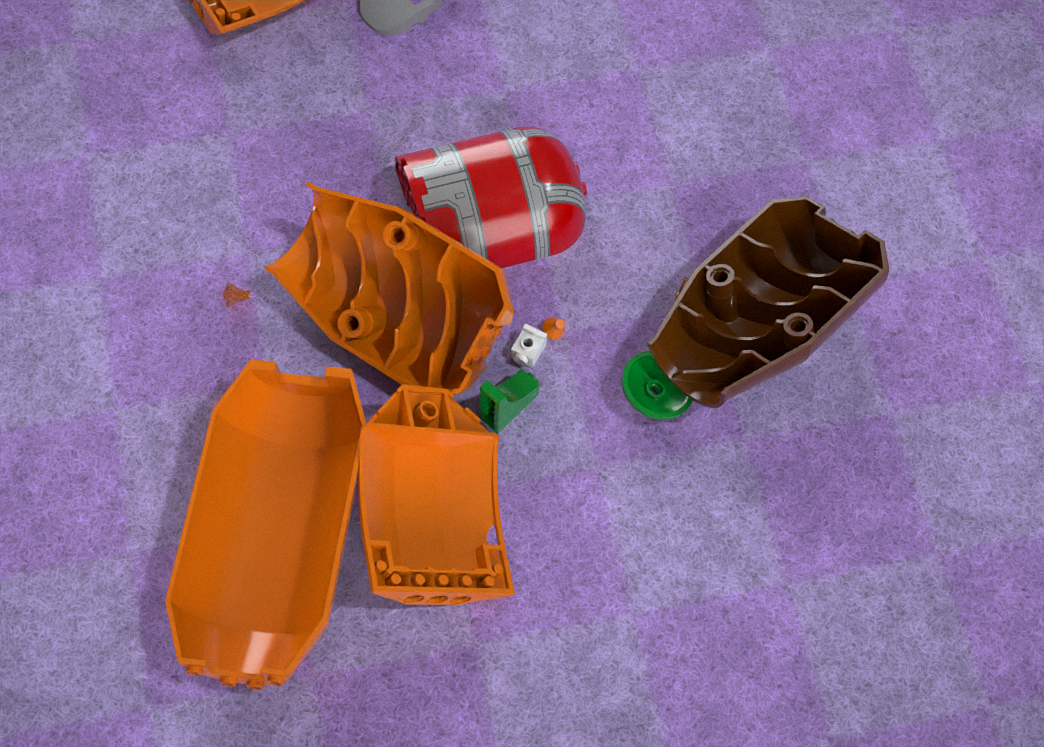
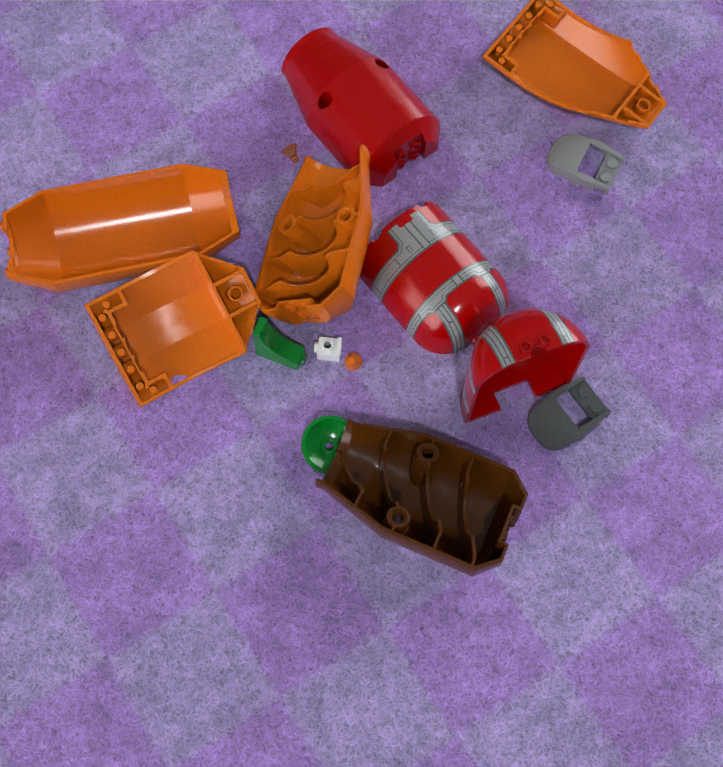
camera: 70 degrees right, 5 degrees up
(206, 195) = (358, 101): none -> red cylinder
(654, 142) = (517, 349): none -> red cylinder
(708, 156) = (552, 424): none -> dark grey slope

